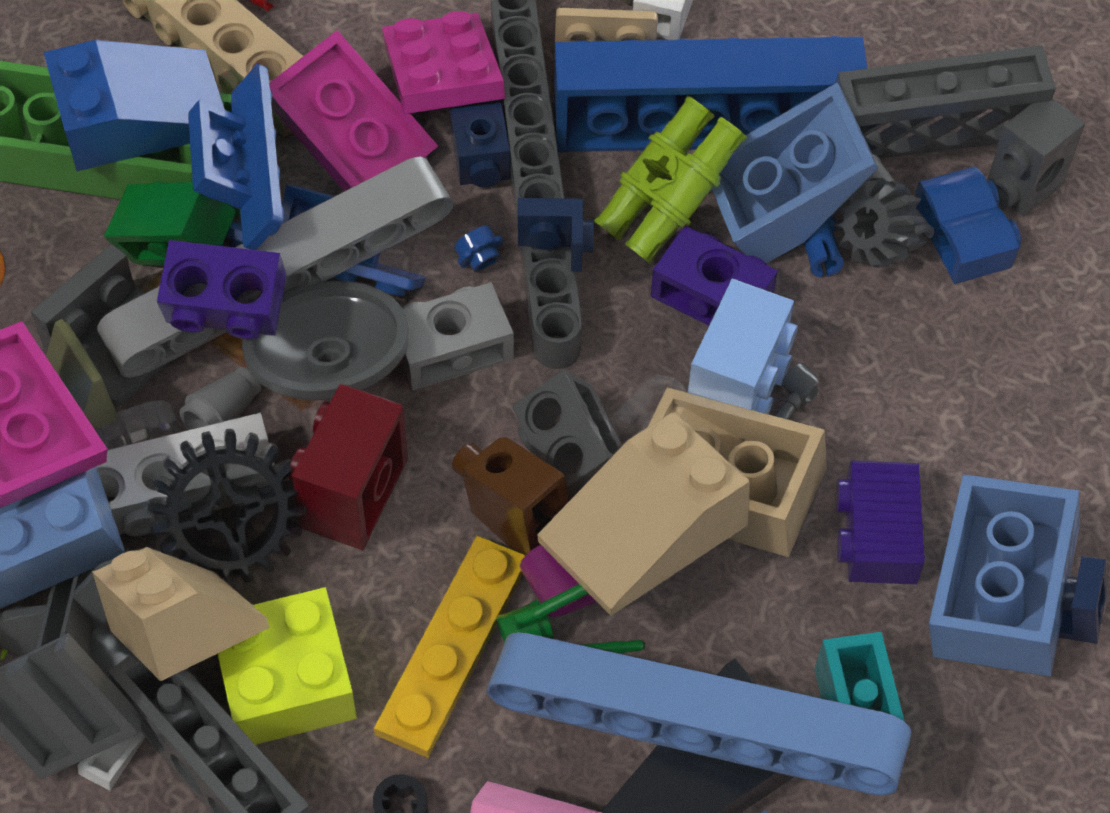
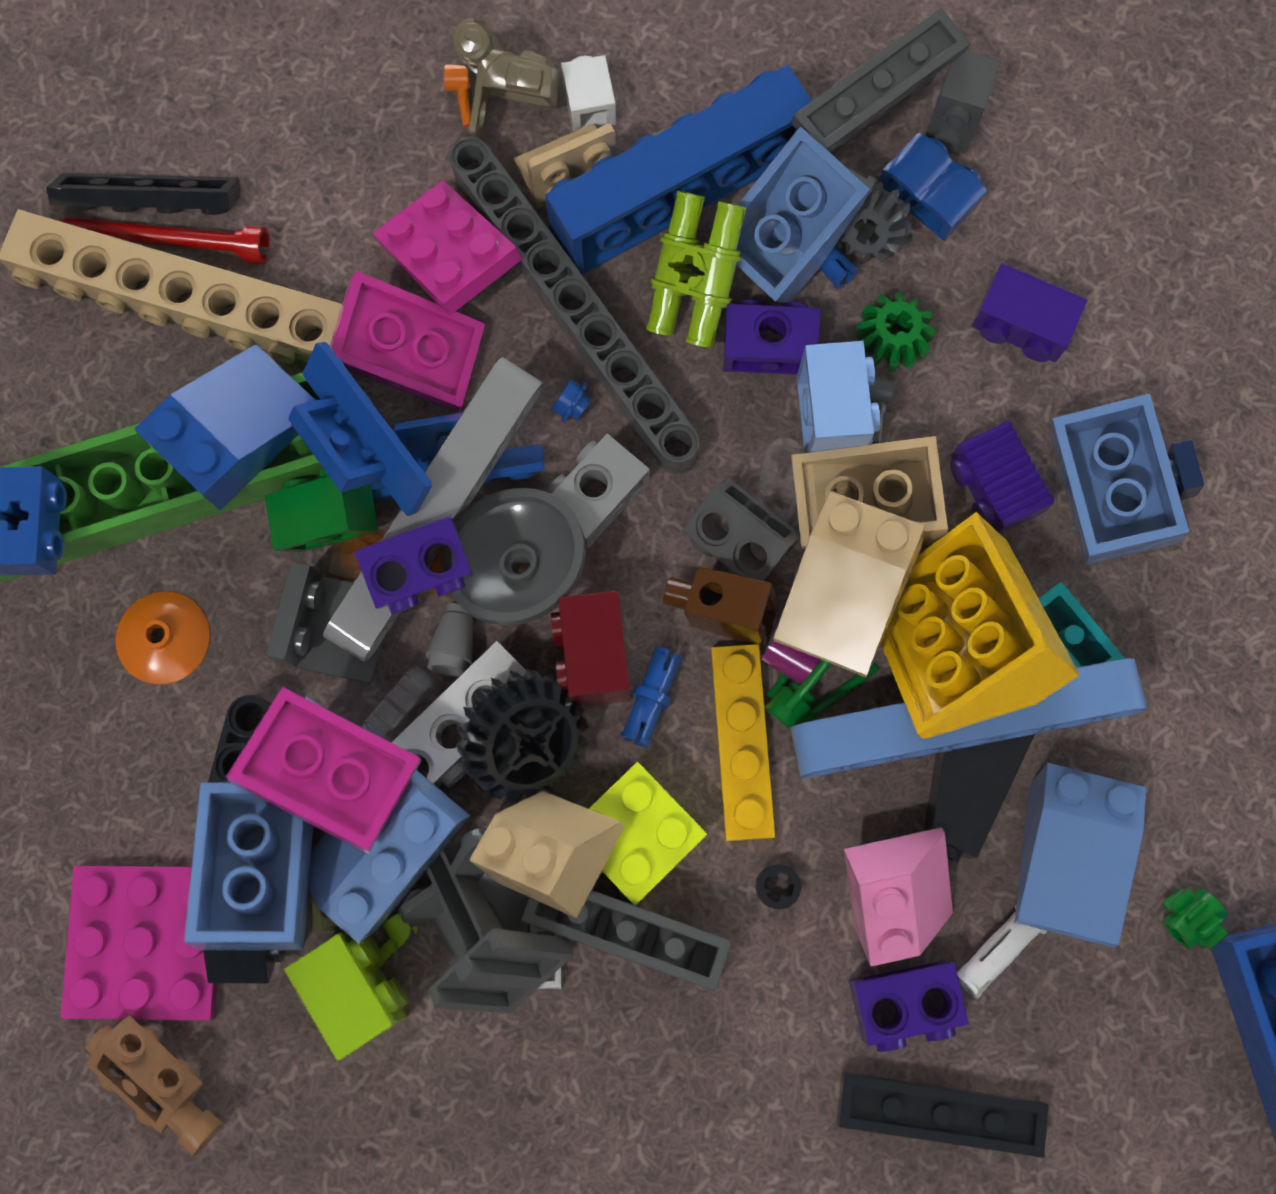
camera: 25 degrees left, 20 degrees up
(79, 375) = (336, 691): olive slope -> none
(384, 552) = (651, 697): none -> blue pin
(480, 144) = (520, 307): dark blue brick -> none
(555, 223) = (629, 364): dark blue bracket -> none
(748, 622) = (972, 634): none -> yellow slope
(849, 334) = (908, 343): none -> green gear
(1002, 382) = (1028, 314): none -> dark purple brick

